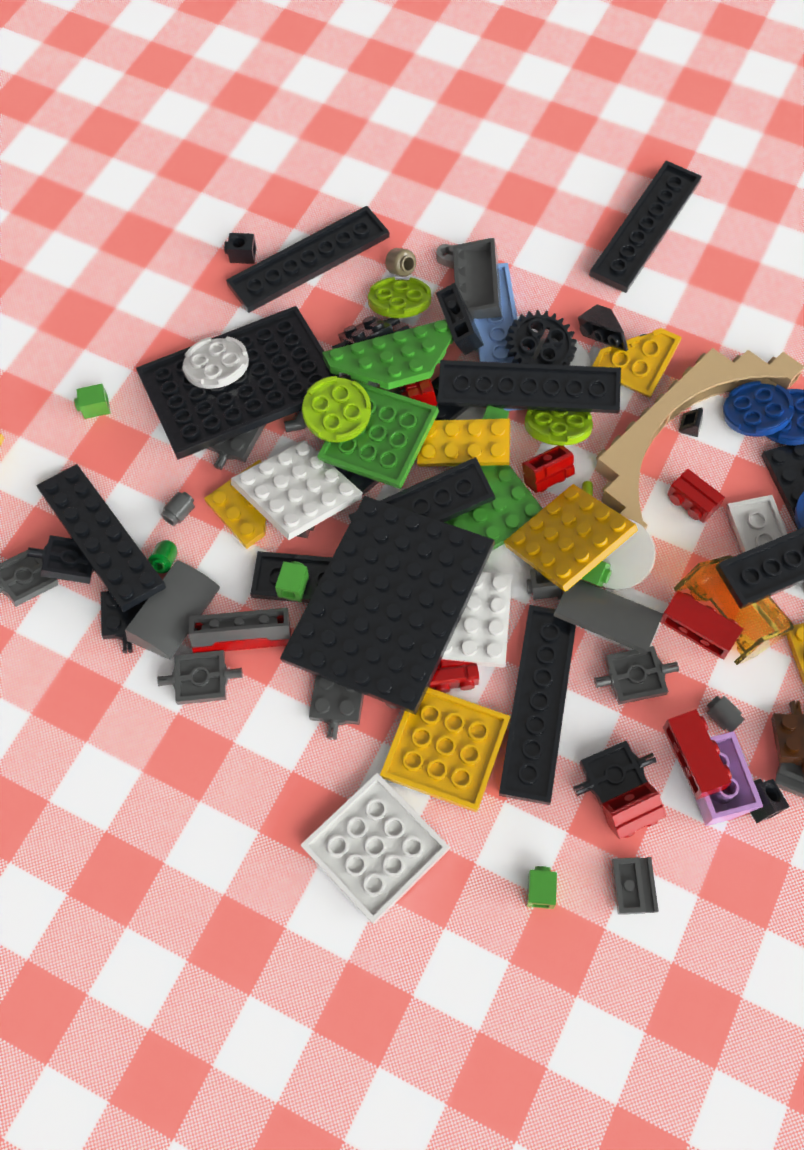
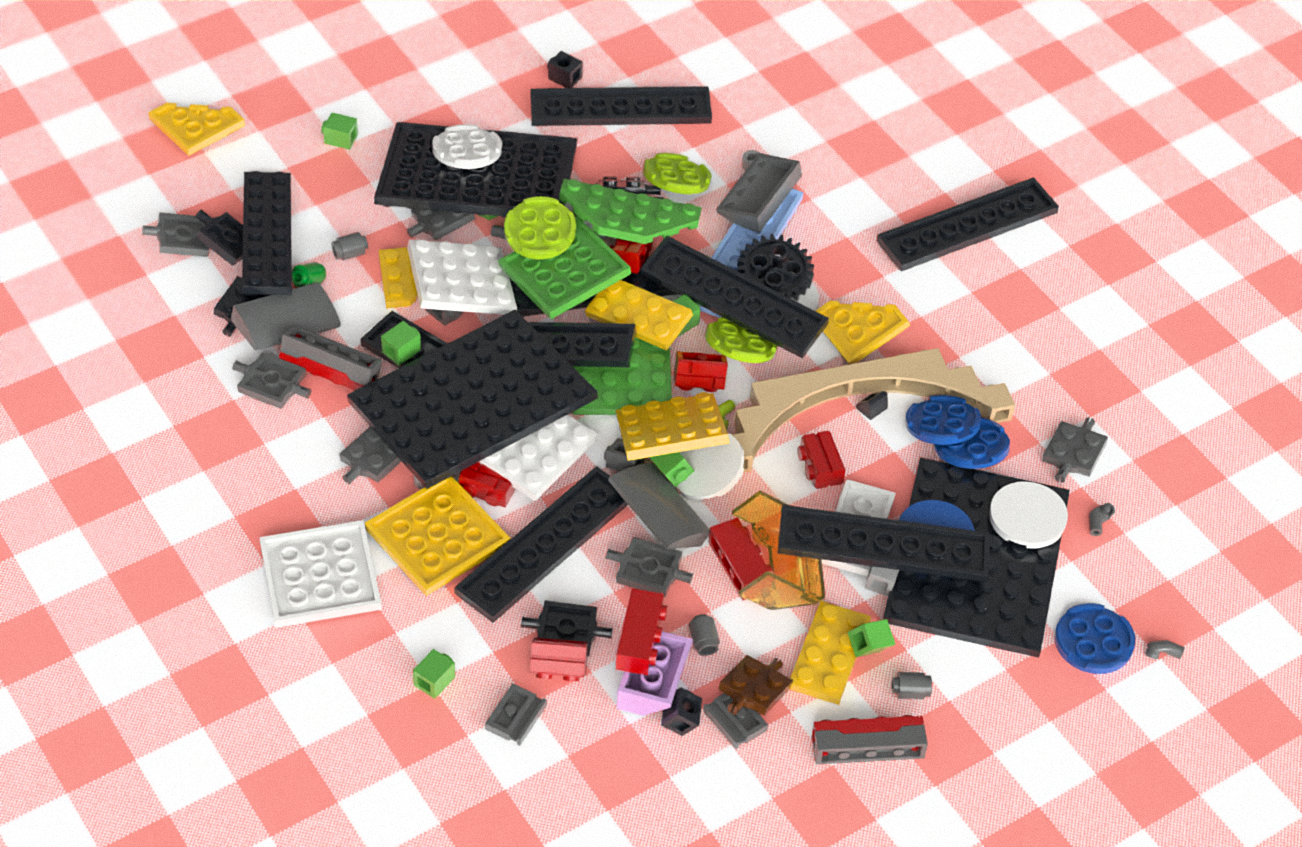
camera: 25 degrees right, 15 degrees down
(400, 262) = (701, 146): dark tan head -> none
(459, 319) = (712, 214): black slope -> none
(602, 326) = (846, 282): black slope -> none

